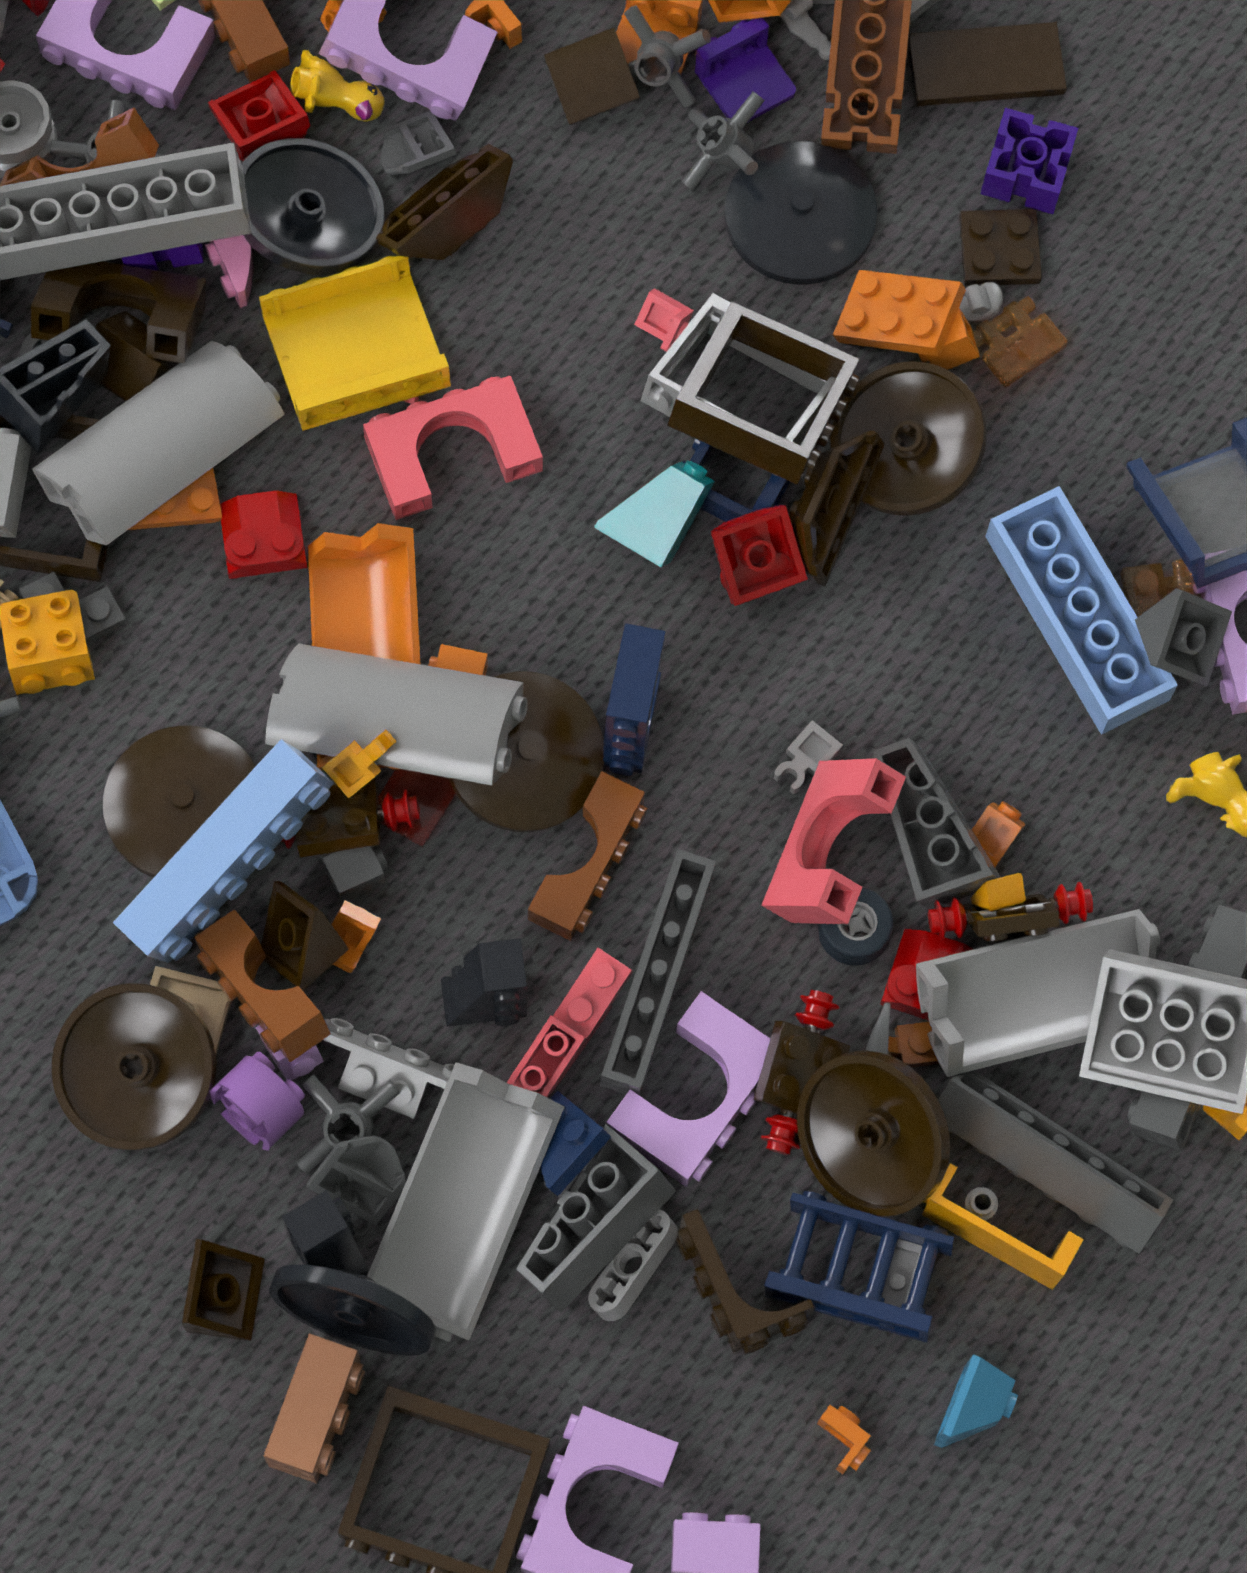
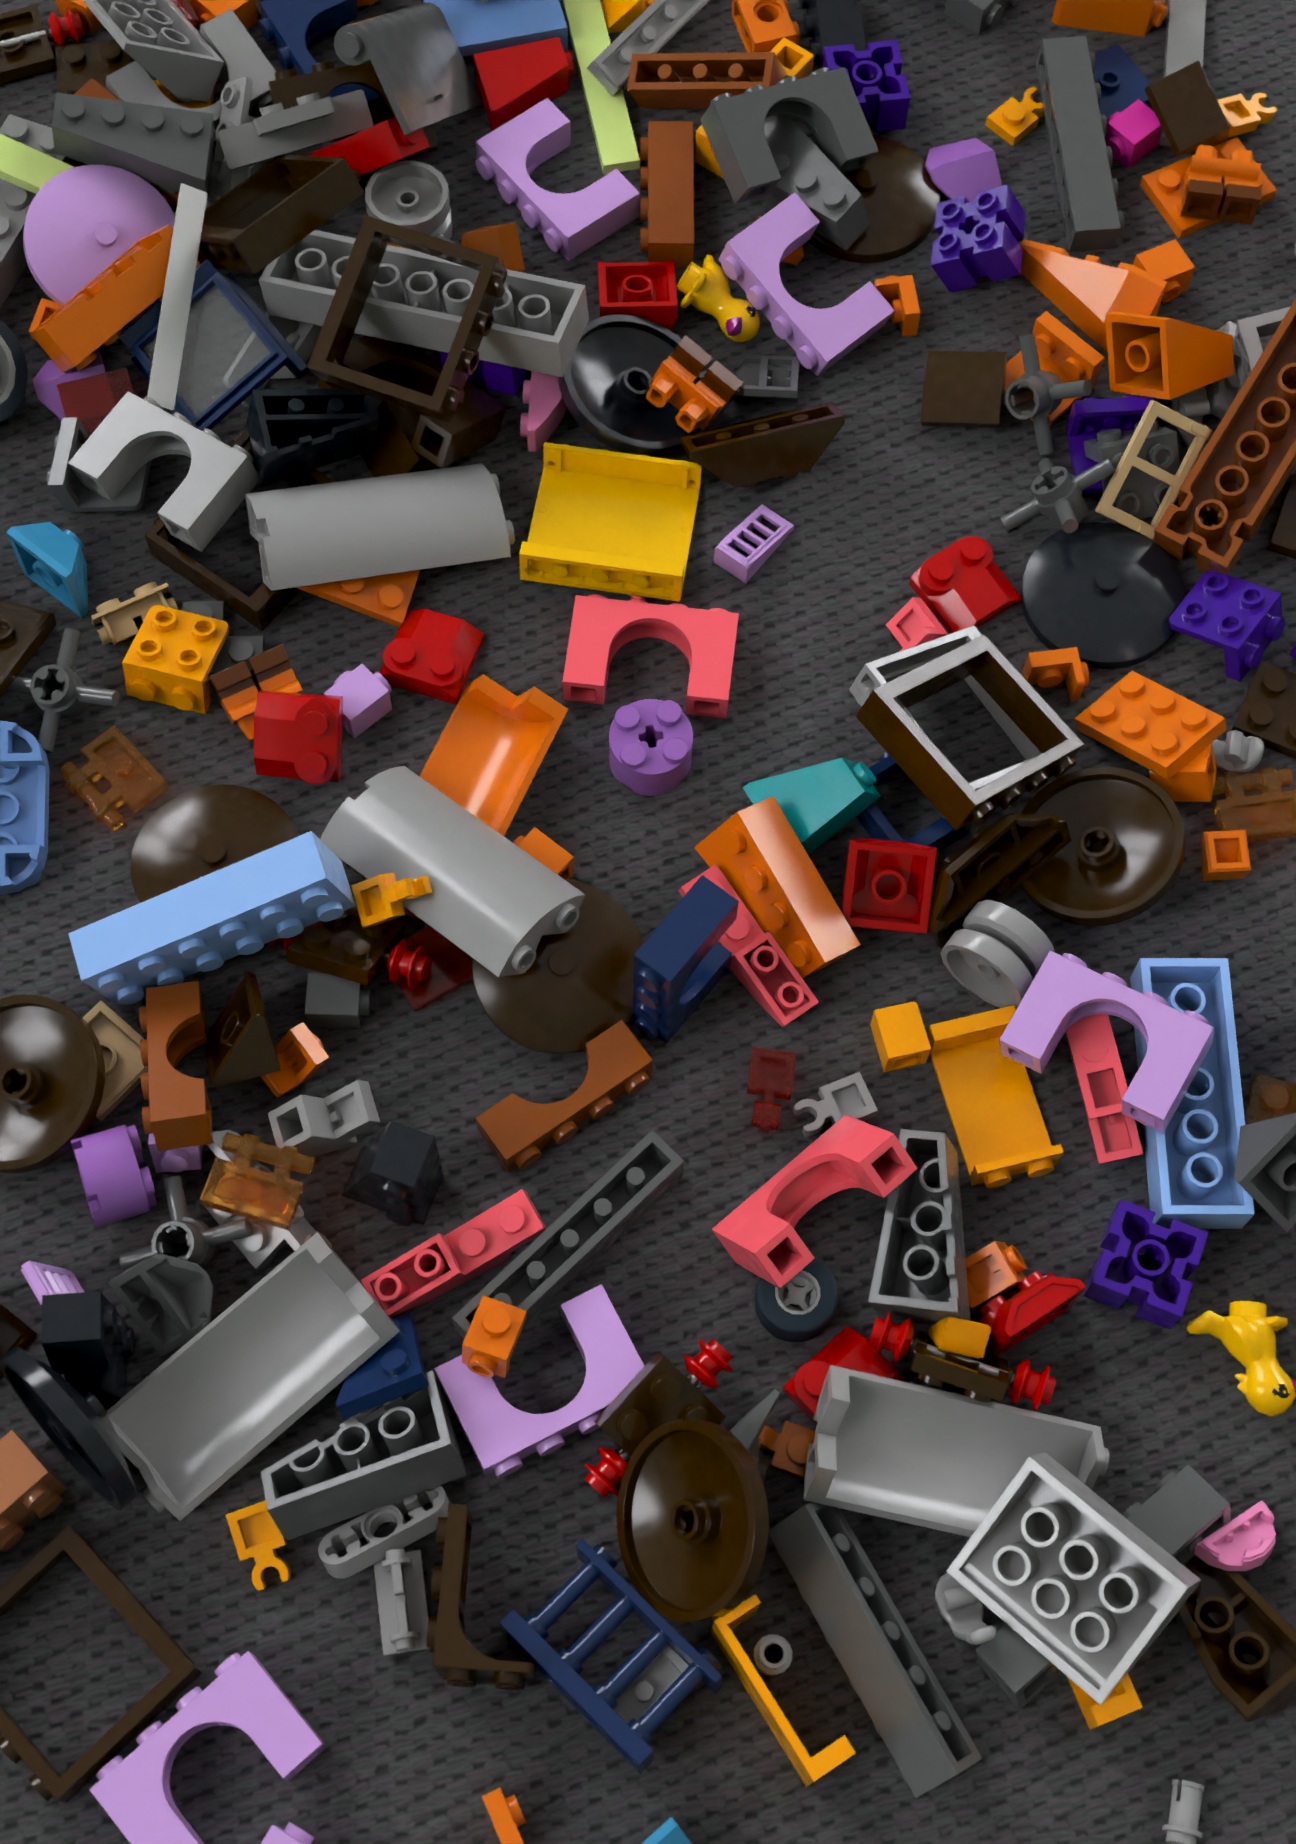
camera: 30 degrees right, 5 degrees down
(35, 252) = (350, 301): none -> dark brown window
(55, 761) = (123, 768): none -> clear orange plate
(133, 634) = (238, 692): none -> hips
(196, 660) = (298, 736): none -> red slope
(224, 603) = (364, 698): none -> lavender brick
(264, 1216) = (49, 1279): none -> lavender slope
(366, 192) = (676, 384): none -> orange hips
(386, 1056) = (253, 1192): none -> clear orange plate
(403, 976) = (325, 1123): none -> light grey brick
(480, 328) = (736, 563): none -> lavender slope
(497, 506) = (644, 726): none -> medium lavender brick
(536, 1319) = (257, 1537): none -> light orange plate
(643, 1074) = (492, 1337): none -> orange bracket
(666, 594) = (780, 885): none -> orange wedge
(675, 1312) = (401, 1601): none -> light grey hinge
(682, 666) = (760, 960): none -> coral slope
(683, 259) = (964, 585): none -> red slope
(741, 759) = (772, 1077): none -> clear red plate
(771, 83) = (1129, 459): none -> tan window
(784, 80) = (1140, 492): none -> dark grey bracket
(794, 299) = (1055, 666): none -> orange bracket
(829, 675) = (900, 1036): none -> light orange panel
(875, 570) = (996, 953): none -> light grey wheel
(919, 186) = (1232, 617): none -> dark purple bracket
(925, 690) = (990, 1100): none -> light orange panel
(950, 573) = (1070, 991): none -> lavender arch
(1001, 628) = (1102, 1088): none -> coral slope
(1012, 396) = (1225, 855): none -> orange slope
(1043, 839) = (1033, 1307): none -> red slope
(1104, 1100) = (962, 1611): none -> light grey piece
(1125, 746) = (1171, 1257): none -> dark purple brick

